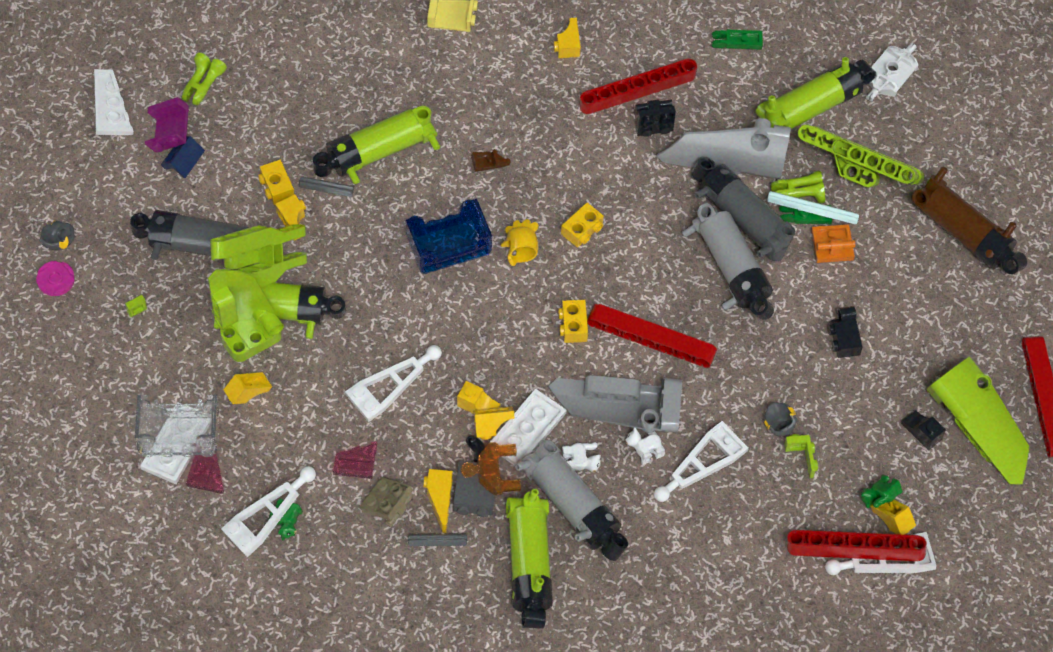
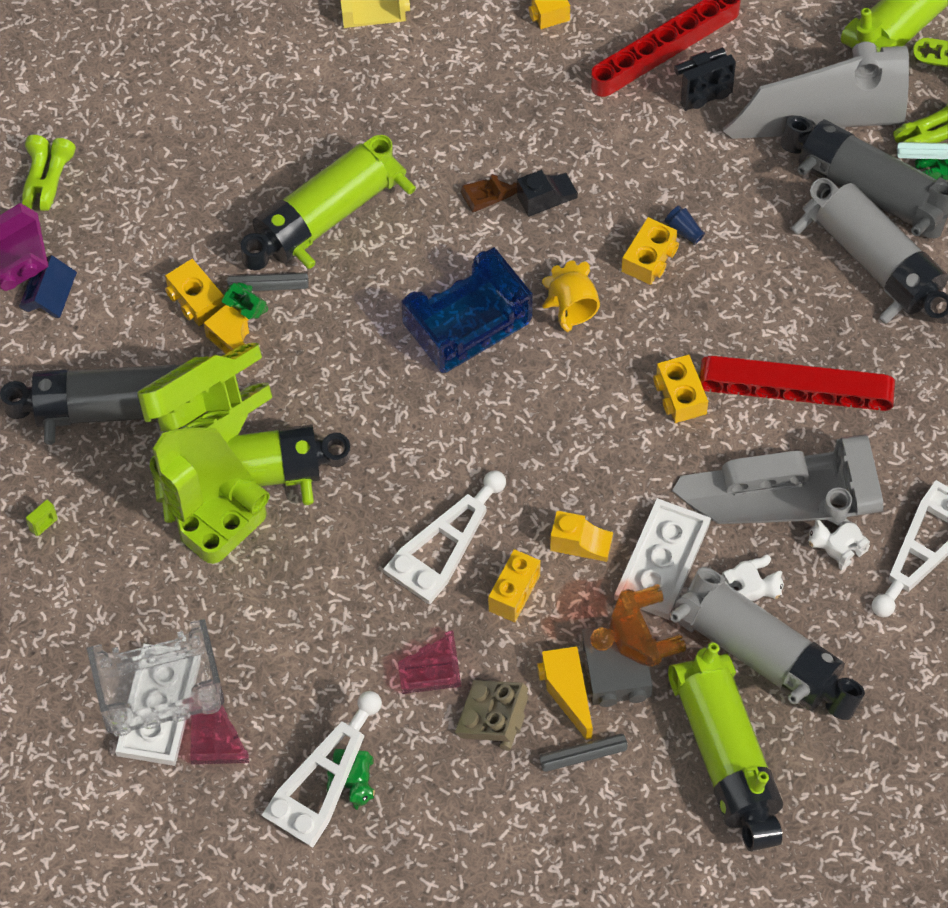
camera: 10 degrees left, 0 degrees up
(246, 386) = (238, 596): yellow arch -> none
(305, 193) = (241, 297): none -> green animal
(425, 422) = (514, 585): none -> yellow brick
(476, 445) = (599, 602): black arm -> none
(489, 420) = (606, 560): yellow arch -> none
(526, 169) = (541, 191): none -> black arch
(611, 212) = (684, 224): none -> dark blue cone

